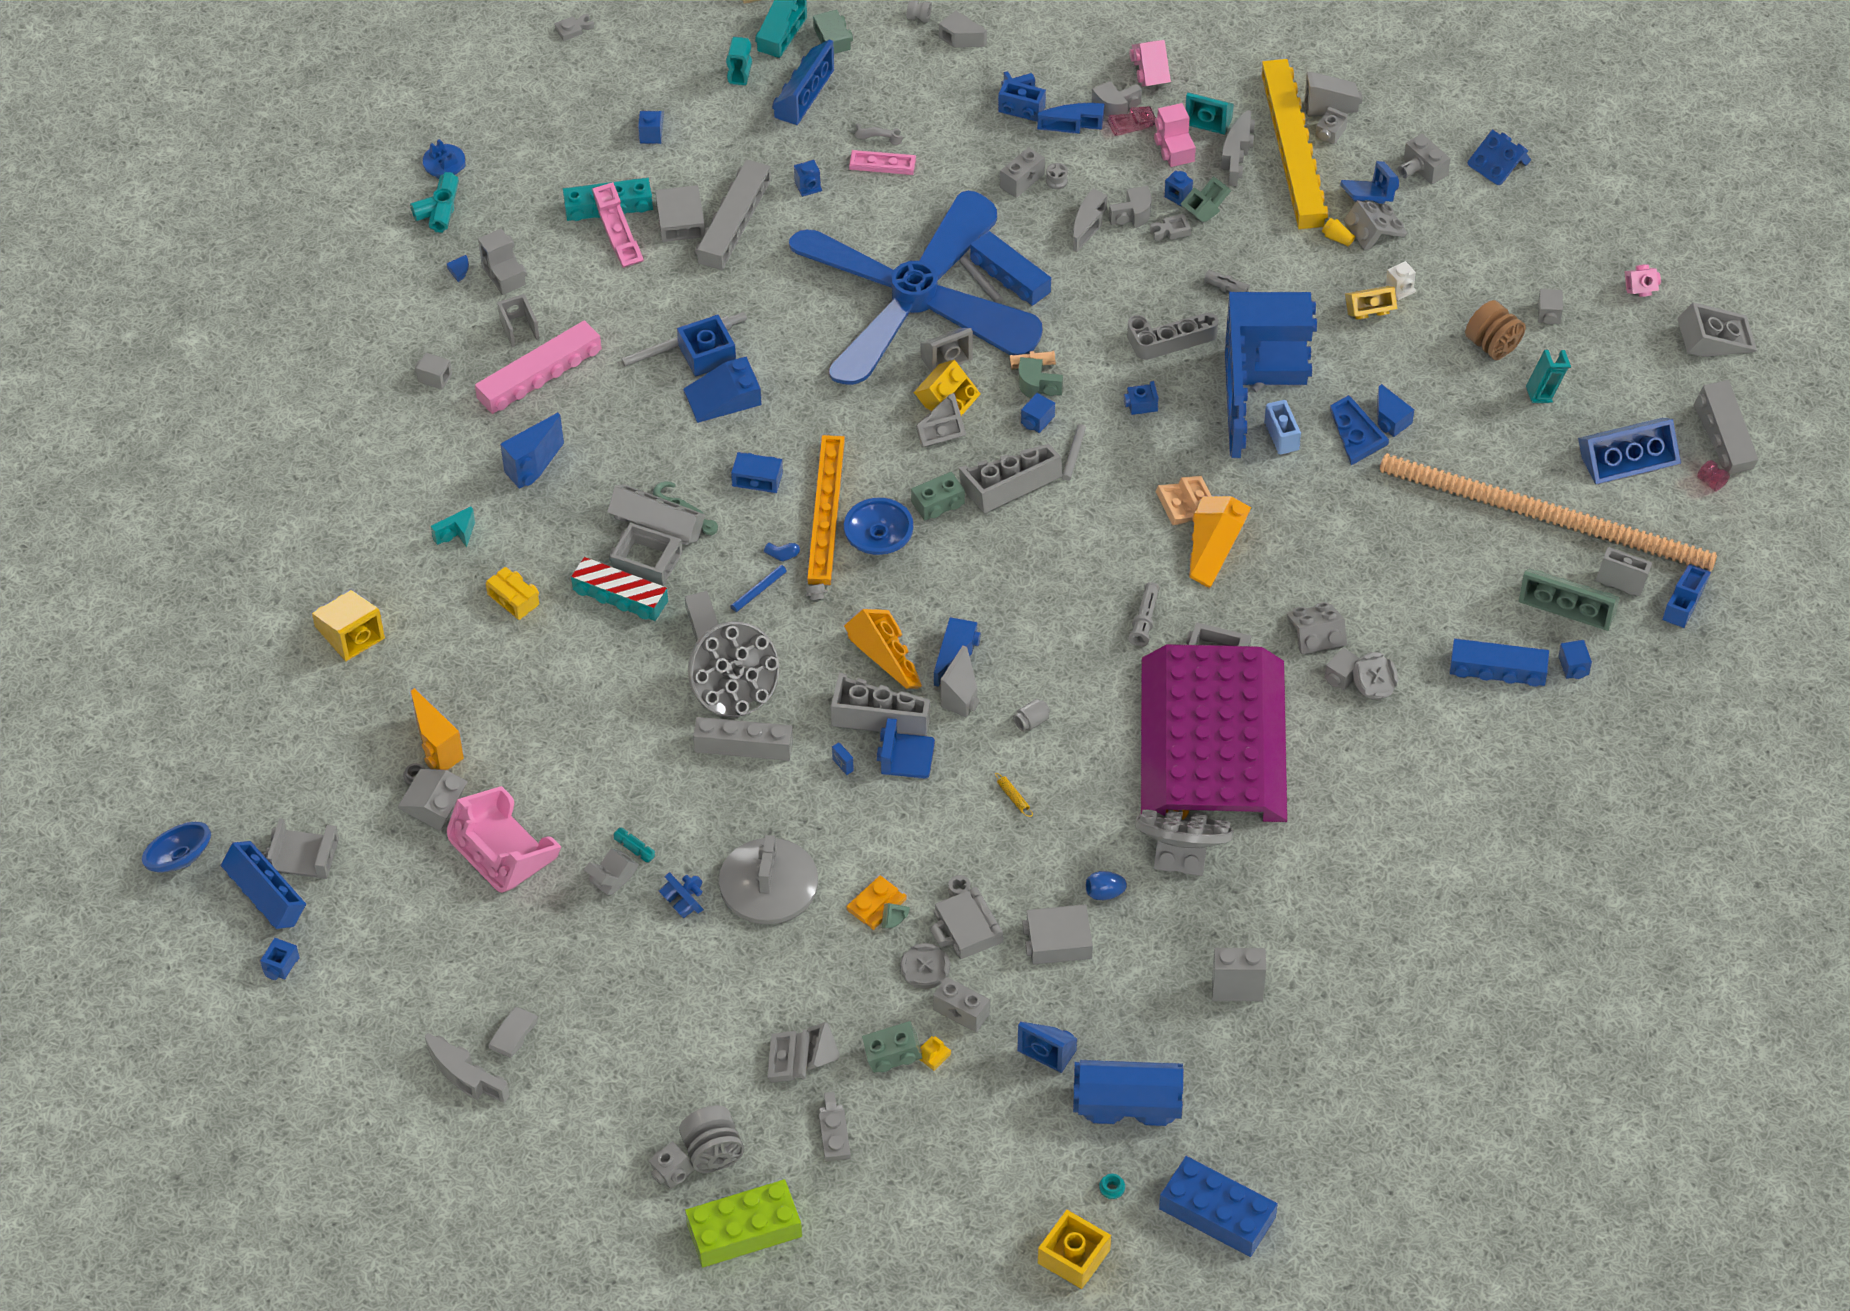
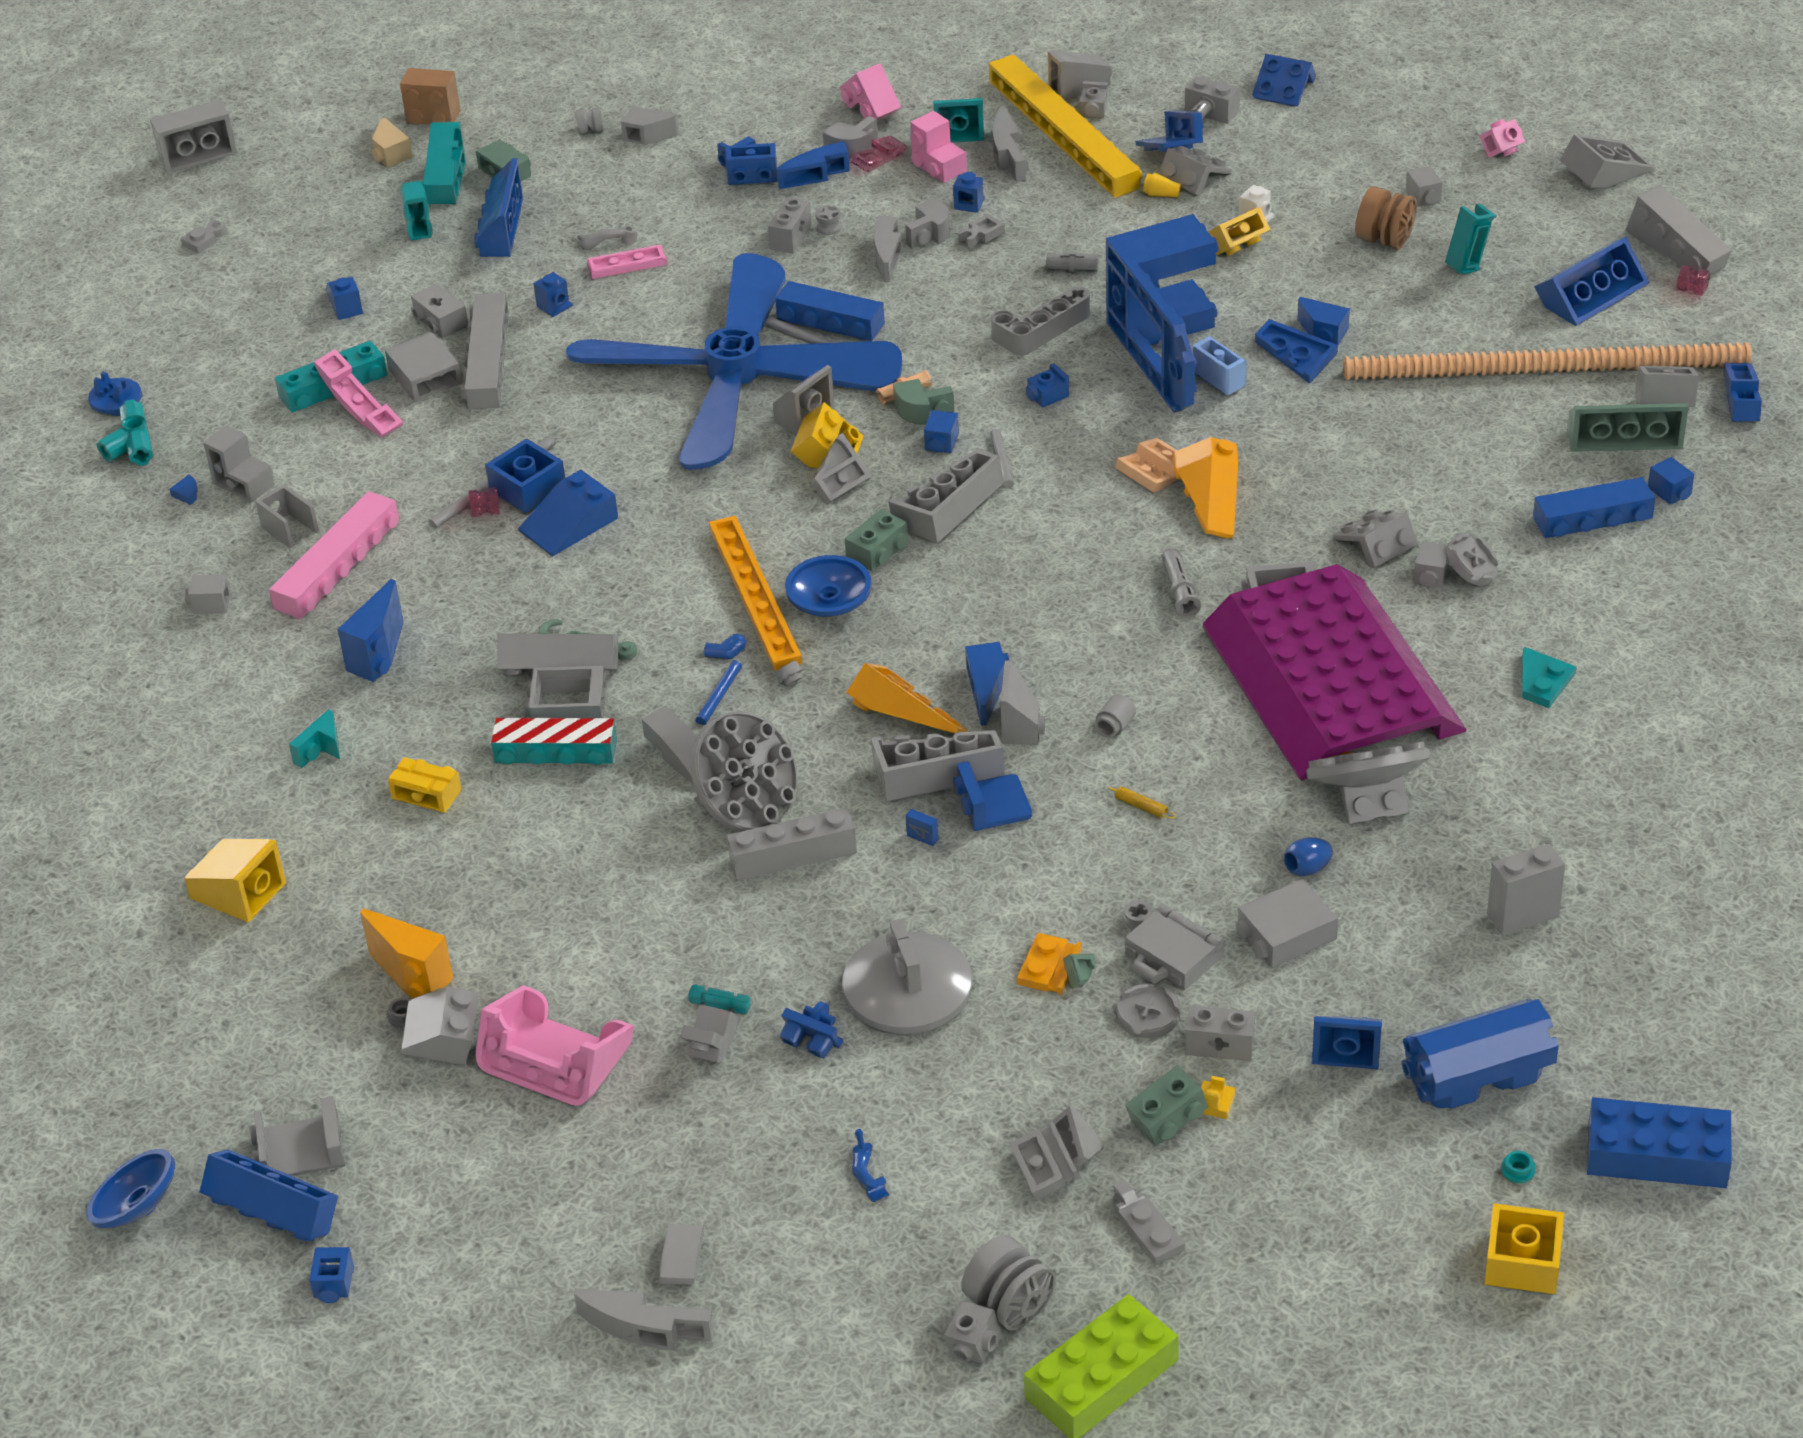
camera: 20 degrees left, 10 degrees down
(667, 357) = (484, 502): none -> clear pink wheel
(669, 1004) = (861, 1155): none -> blue piece
(715, 163) = (439, 310): none -> light grey brick
(757, 472) = (653, 579): blue brick -> none
(1206, 203) = (1004, 196): sand green brick -> none
(1371, 797) = (1544, 677): none -> teal wing

